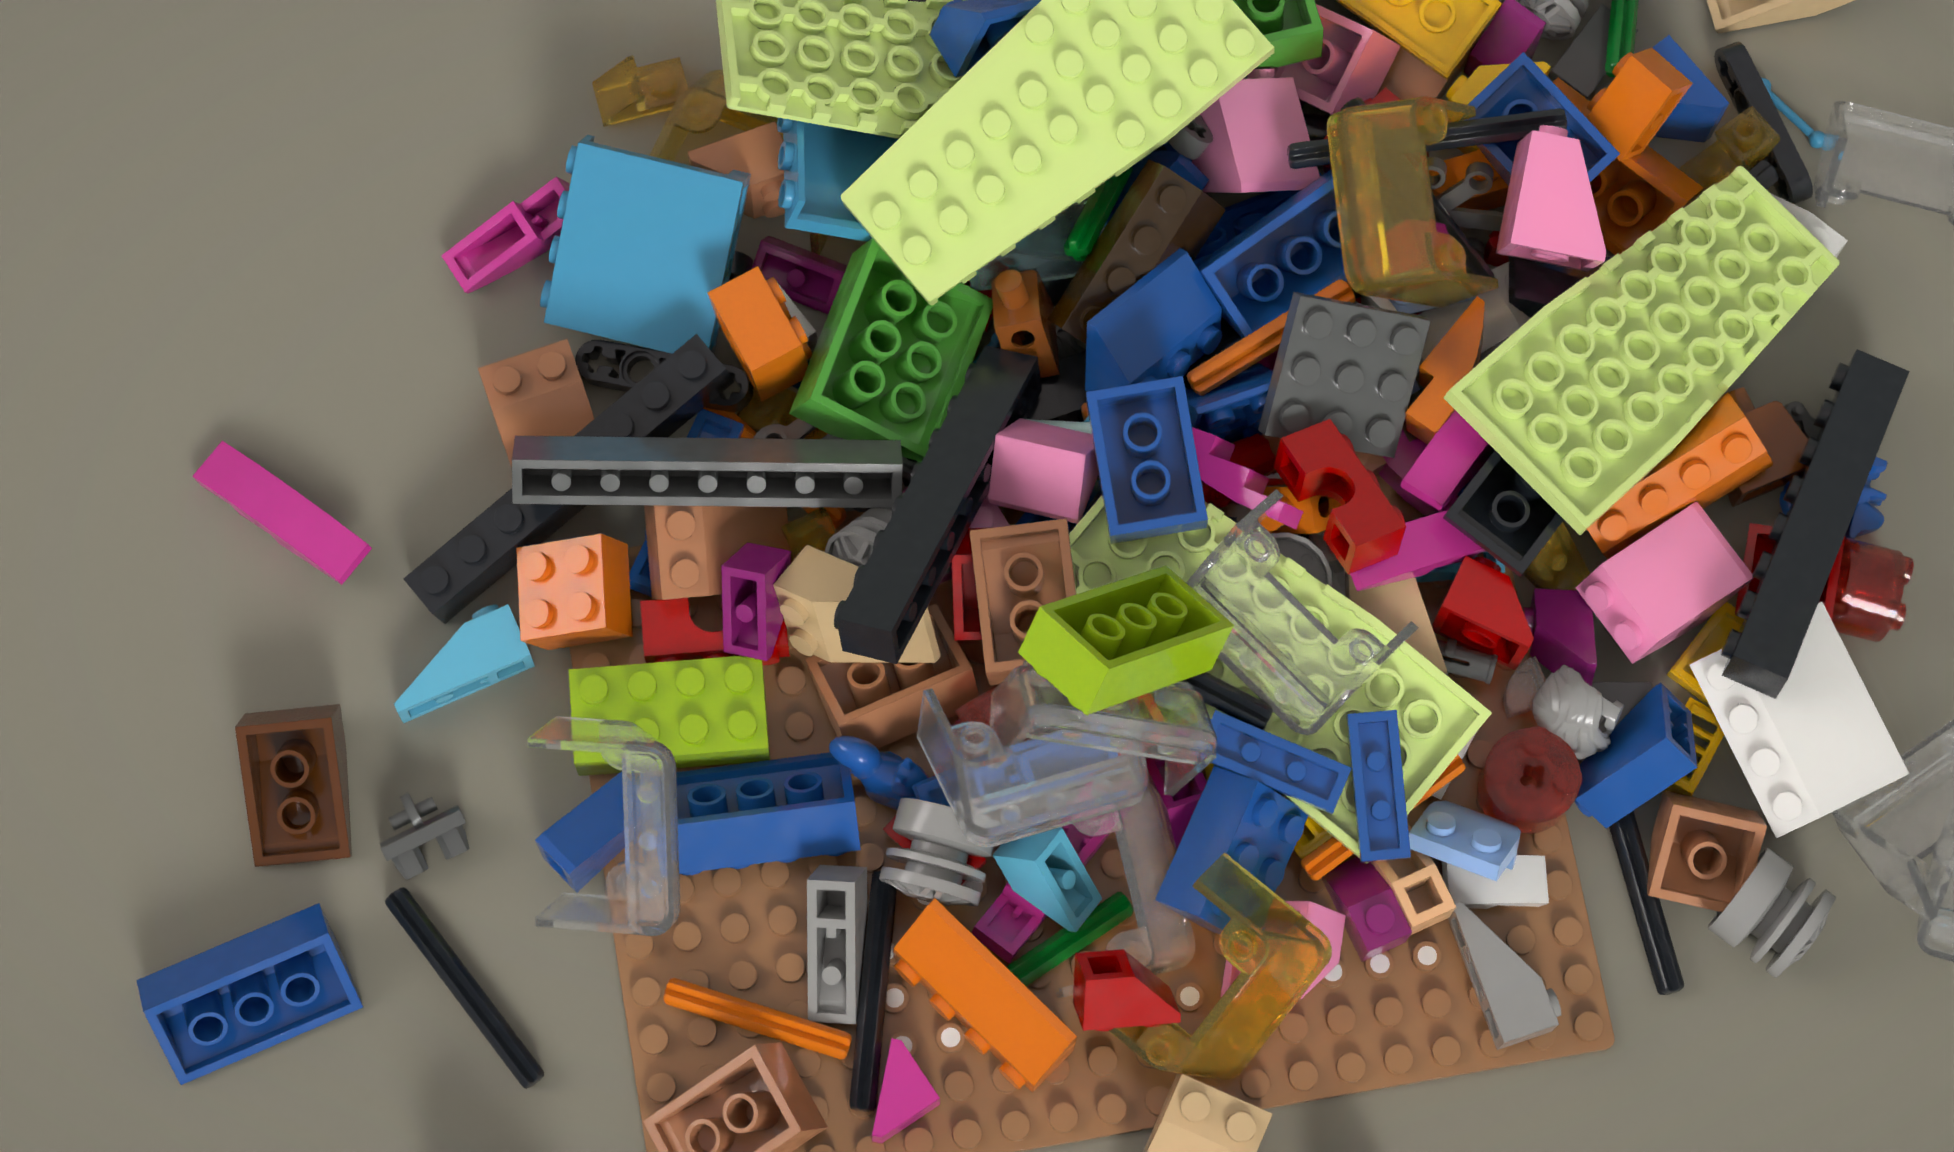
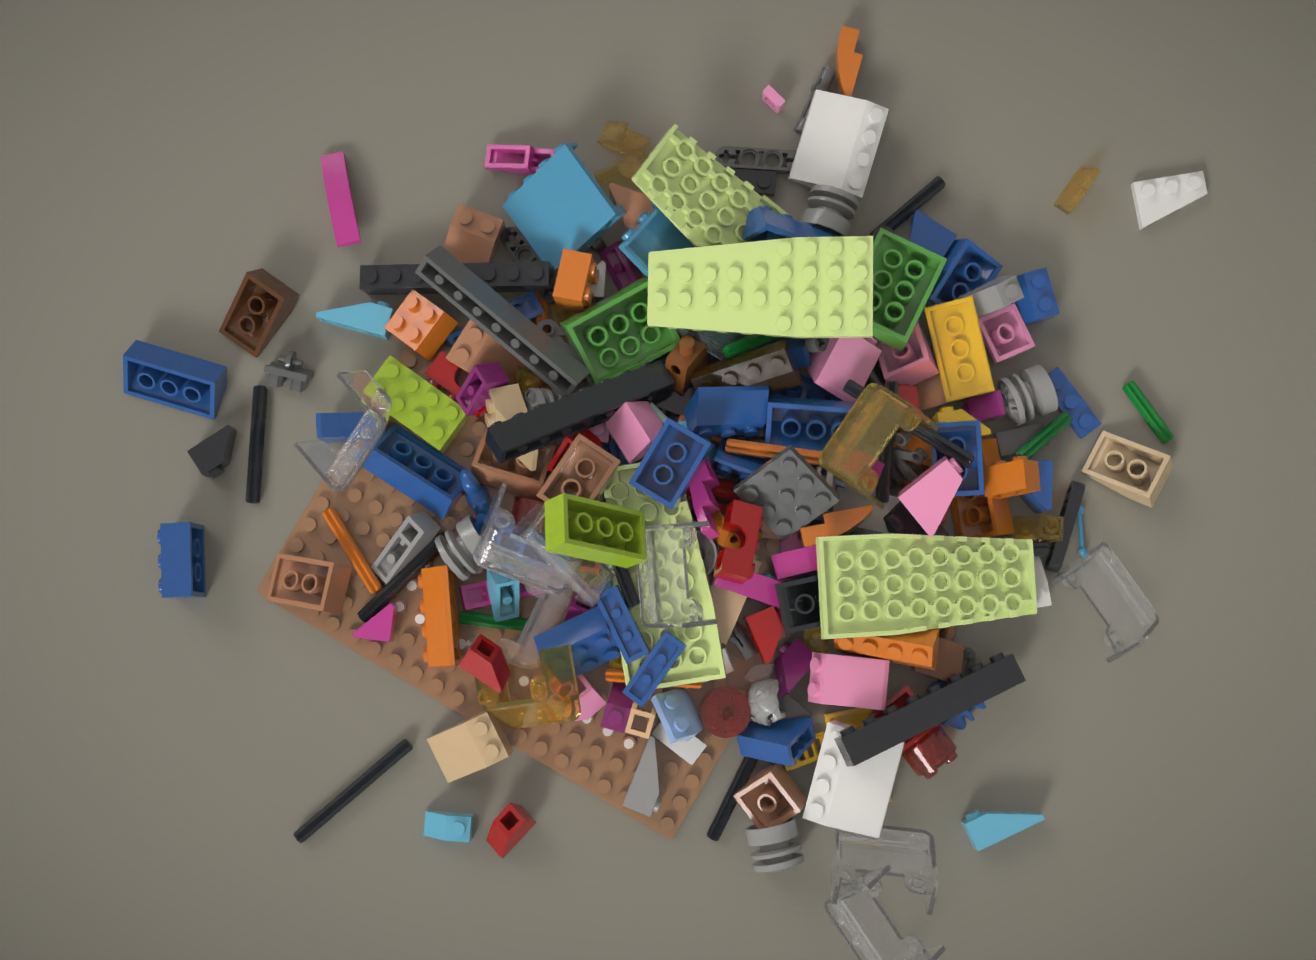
camera: 45 degrees right, 10 degrees up
(409, 1053) = (214, 452): none -> black slope

